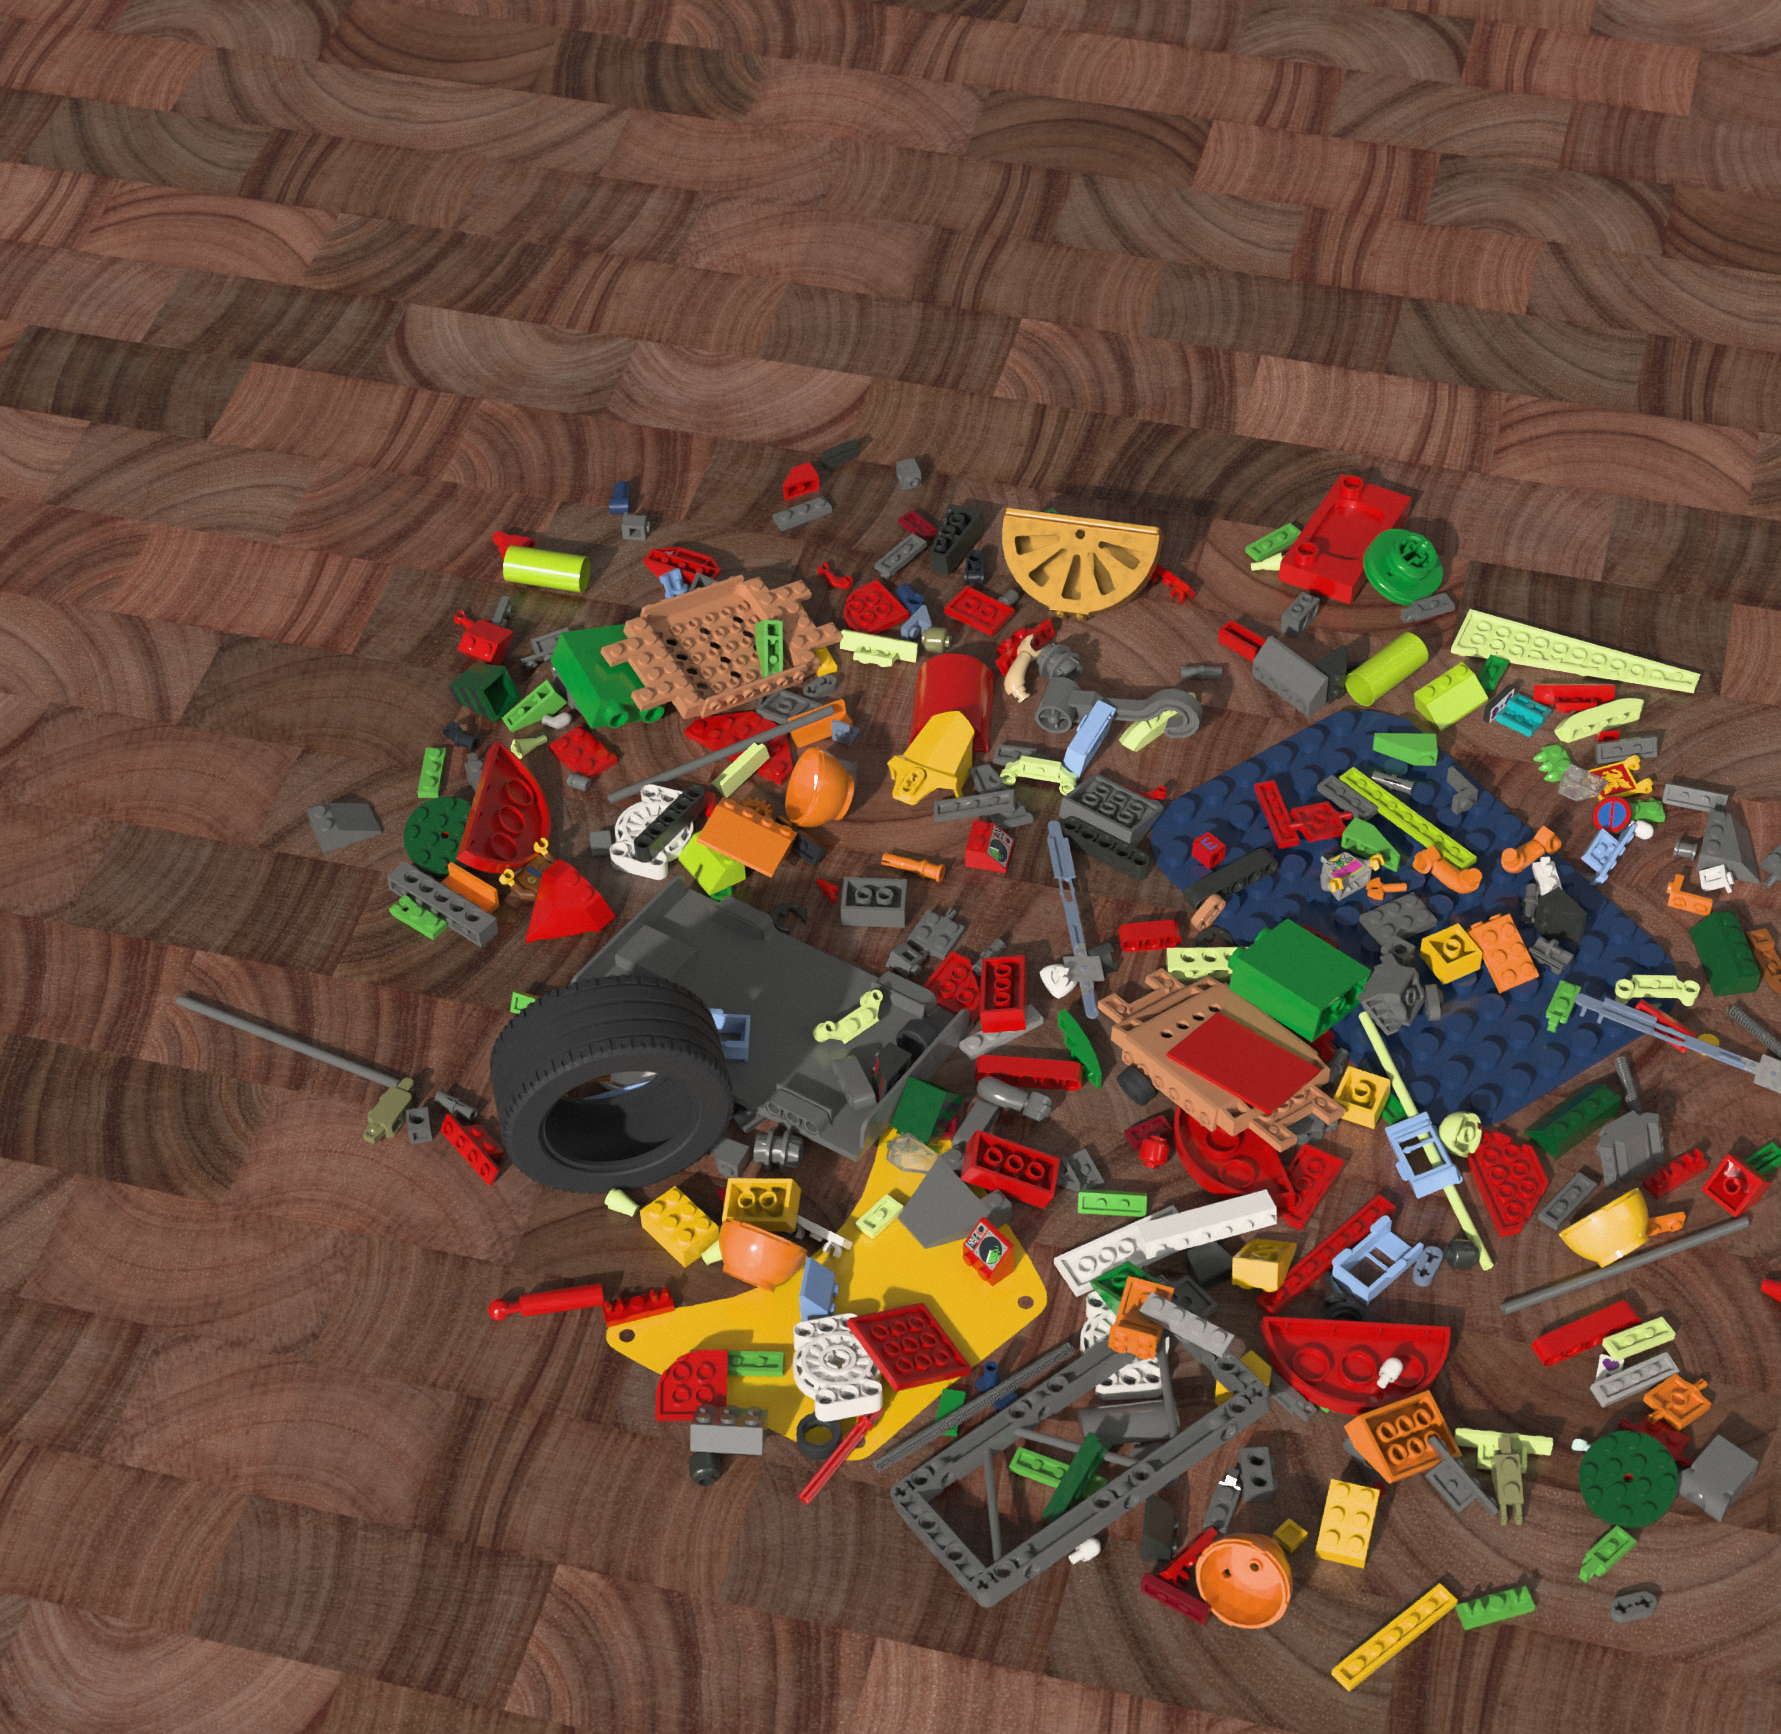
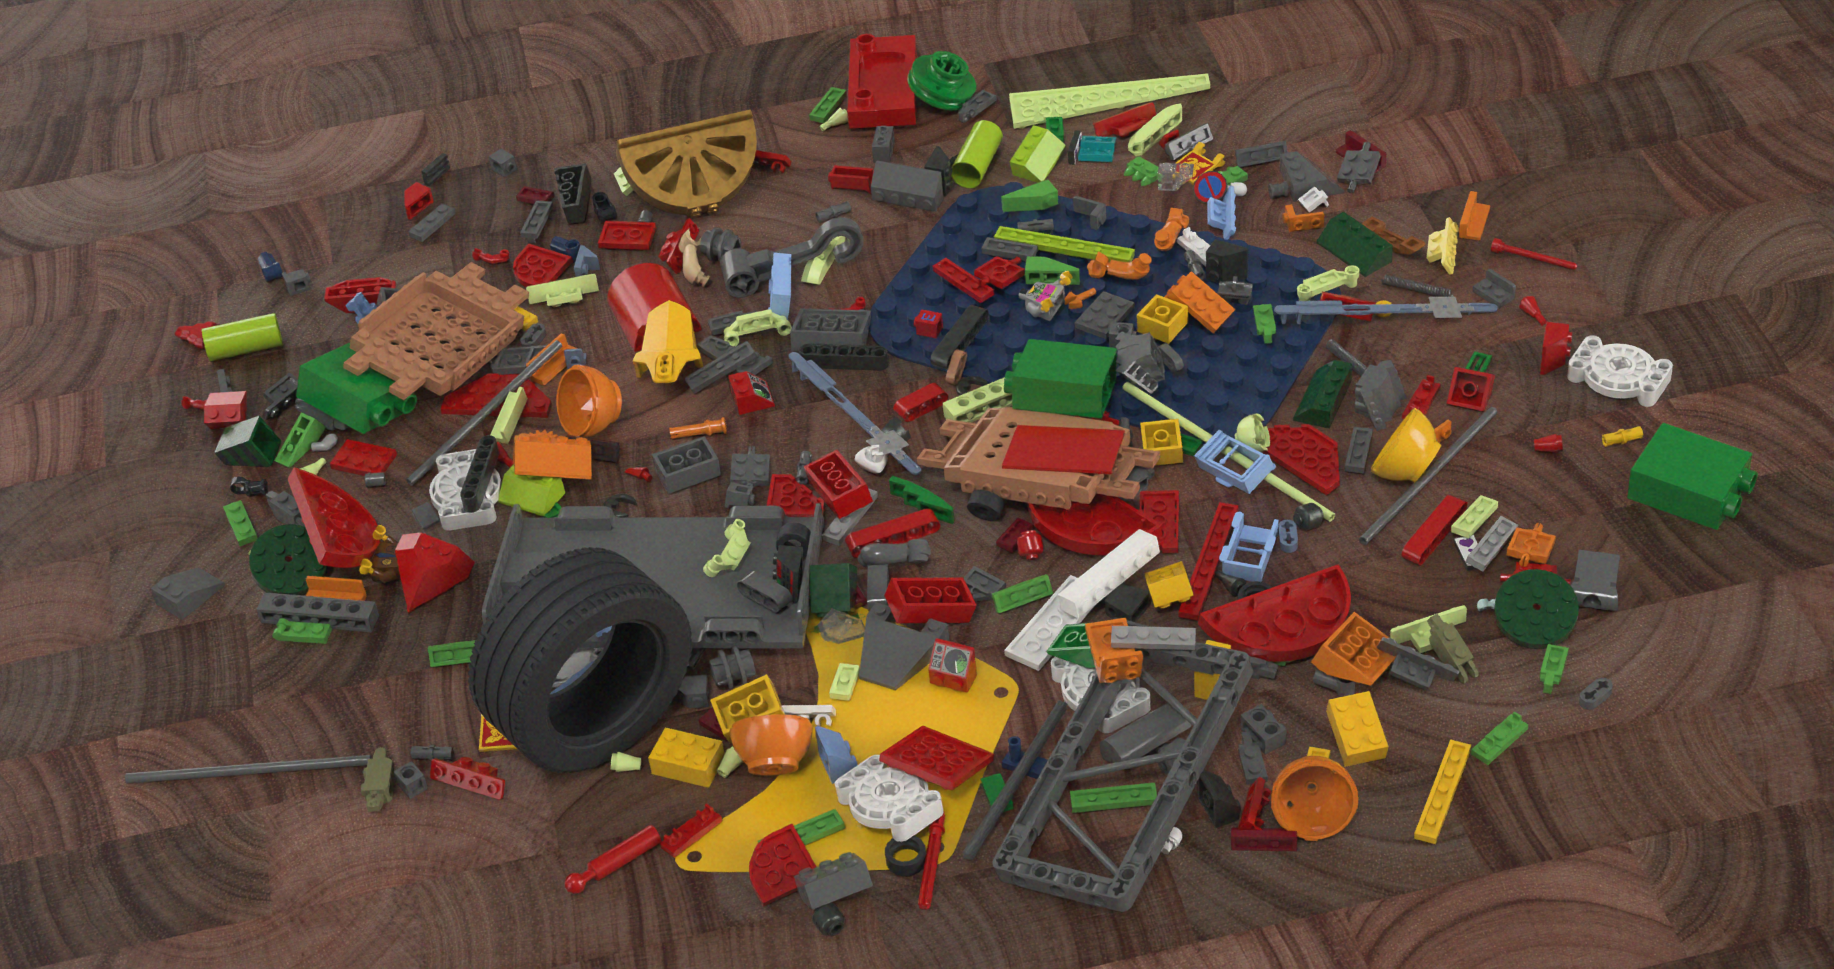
camera: 25 degrees left, 5 degrees down
(769, 646) = (476, 316): bright green slope -> none
(936, 639) = (607, 266): olive head -> none
(1077, 1477) = (1135, 789): dark green fence -> none
(1389, 1371) = (1317, 611): white cylinder -> none

